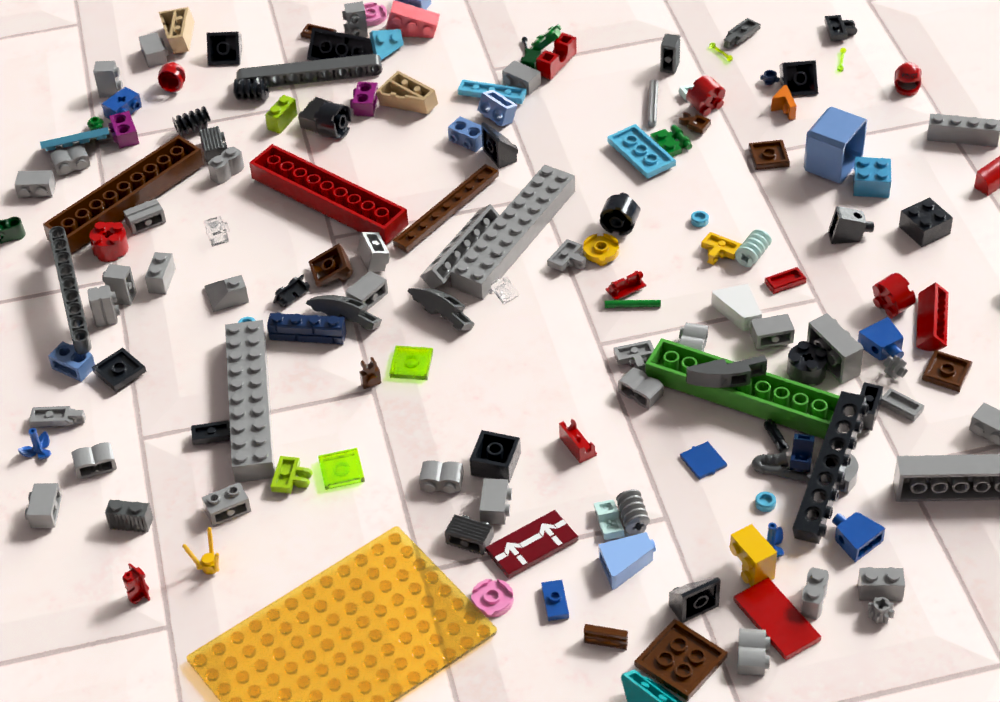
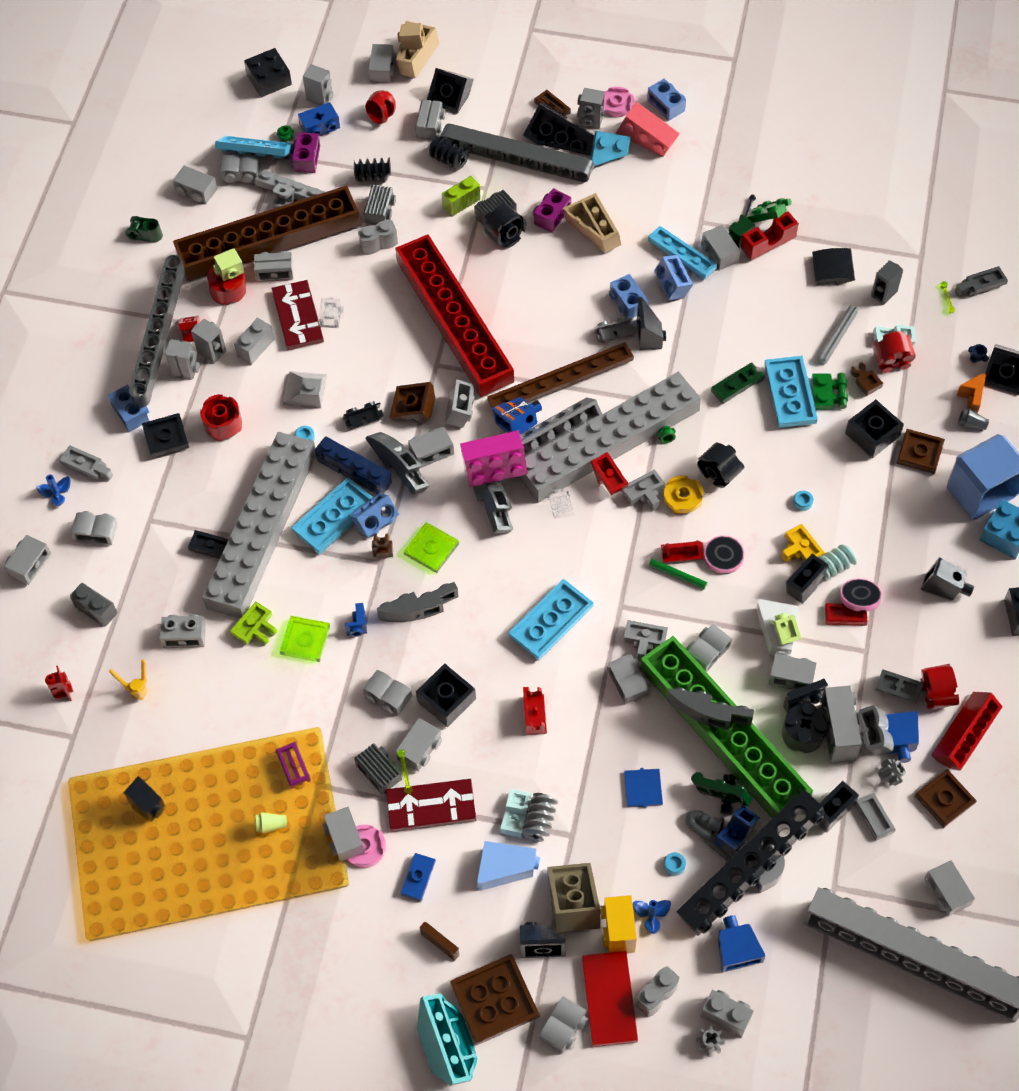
camera: 25 degrees right, 15 degrees up
(54, 86) = (268, 72): none -> black brick
(92, 282) = (186, 325): none -> red slope
(107, 220) = (228, 265): none -> yellowish green brick
(119, 160) = (284, 188): none -> light grey plate
(164, 335) = (221, 417): none -> red brick
(172, 16) = (411, 36): none -> tan brick
(186, 244) = (297, 315): none -> dark red tile
(220, 73) = (429, 119): none -> light grey brick
(273, 636) = (144, 799): none -> black slope
(311, 370) = (331, 516): none -> medium azure plate
(348, 354) = (372, 510): none -> medium blue brick
(383, 436) = (359, 623): none -> blue bracket
(388, 563) = (299, 780): none -> magenta tile
(397, 610) = (269, 822): none -> yellowish green cone
(423, 408) = (411, 608): none -> dark grey slope
(426, 243) = (516, 415): none -> blue torso
(433, 268) = (494, 458): none -> dark pink brick
(471, 590) = (343, 834): none -> light grey brick
(474, 155) = (606, 330): none -> light grey hinge
(505, 536) = (408, 788): none -> clear neon green hinge
(530, 252) = (608, 474): none -> red slope
(548, 372) = (551, 619): none -> medium azure plate
(560, 213) = (666, 434): none -> green plate
(594, 160) = (737, 383): none -> dark green plate
(619, 60) = (833, 265): none -> black slope
(661, 276) = (724, 554): none -> black tile
(700, 556) = (574, 898): none -> dark tan slope
(724, 149) = (874, 428): none -> black brick
(740, 264) = (806, 578): none -> black slope
(749, 298) = (786, 628): none -> yellowish green bracket
(770, 429) = (721, 790): none -> dark green plate
(789, 261) = (860, 595): none -> tile
(794, 119) = (971, 419): none -> dark grey cone
(797, 334) = (807, 694): none -> black plate
(861, 307) = (899, 686): none -> dark grey hinge
(867, 337) = (875, 730): none -> light grey brick

